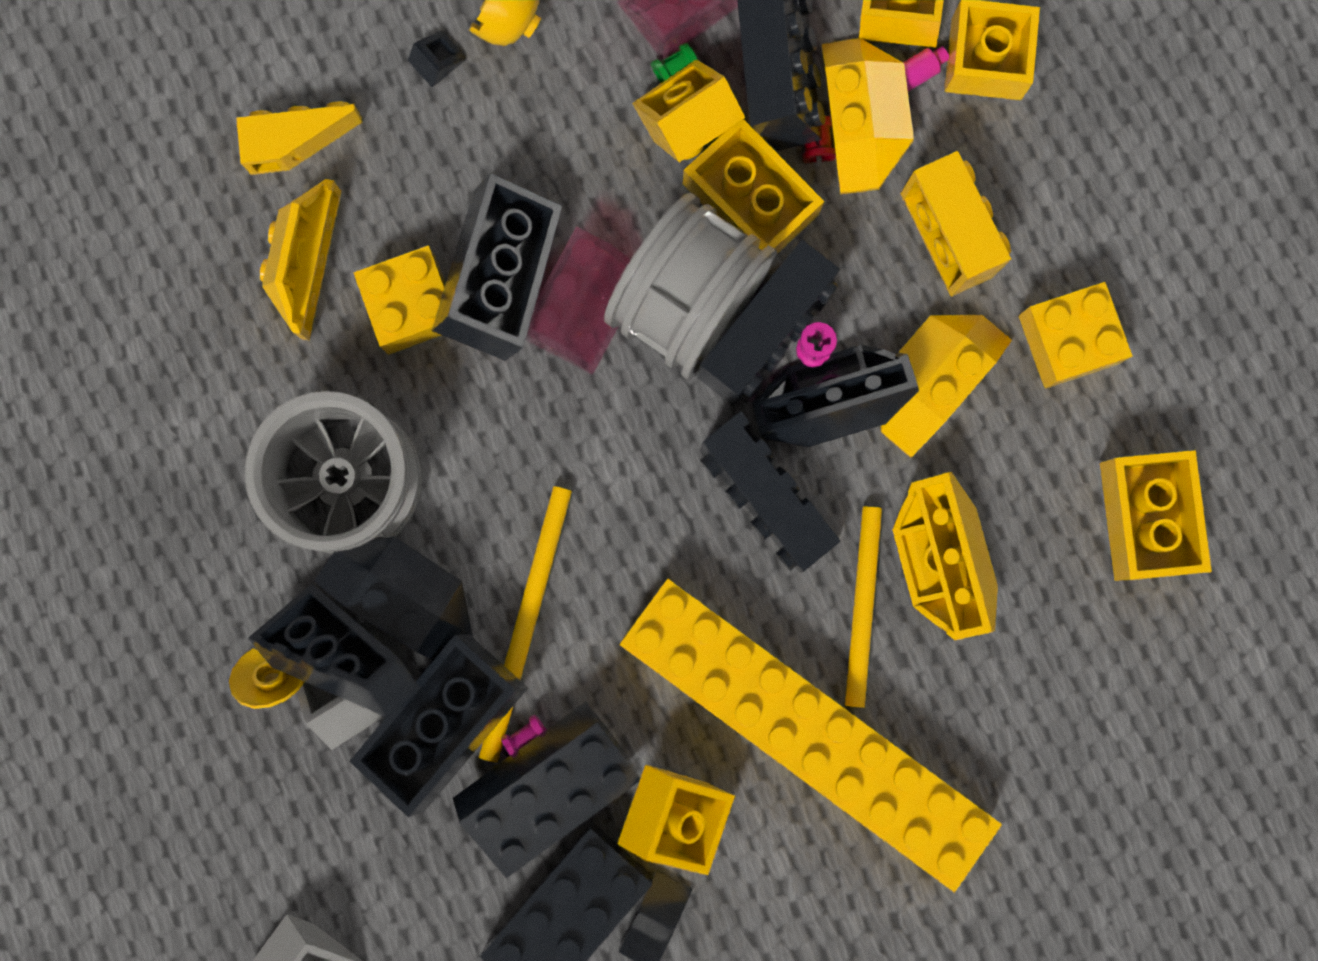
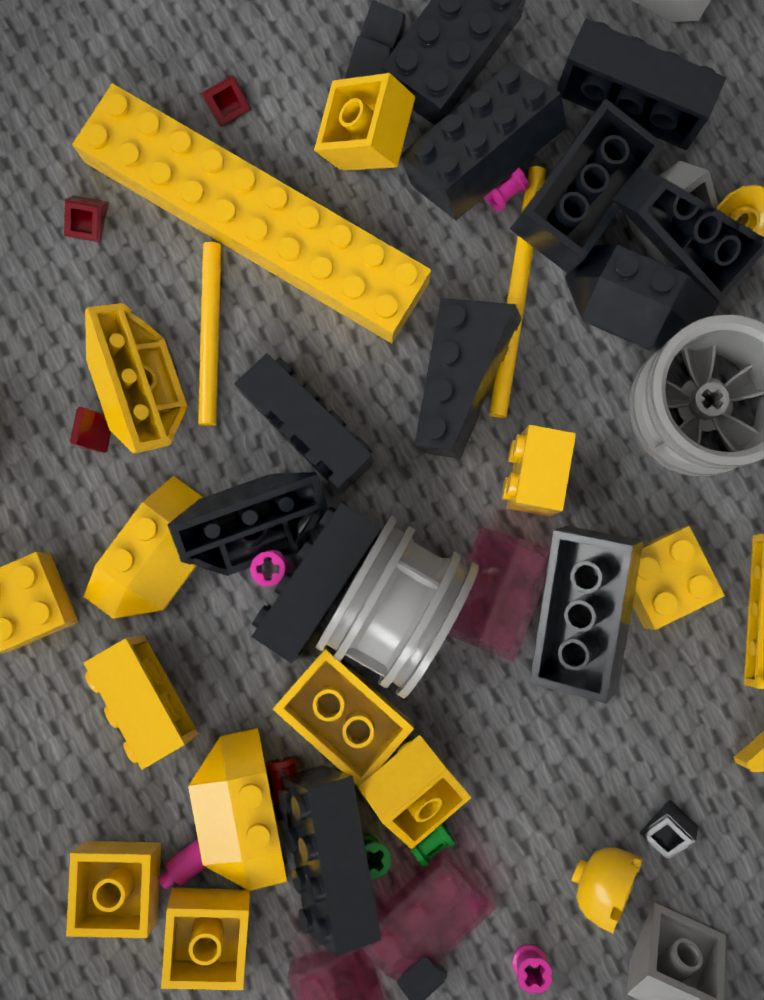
camera: 175 degrees right, 0 degrees up
(365, 838) = (646, 83): none -> black brick
(528, 417) = (539, 470): none -> yellow brick
(597, 535) = (464, 358): none -> black wedge
(728, 51) = (382, 859): none -> green bush
(829, 875) = (225, 100): none -> dark red slope
(992, 751) = (84, 218): none -> dark red slope
(996, 510) = (90, 430): none -> dark red slope

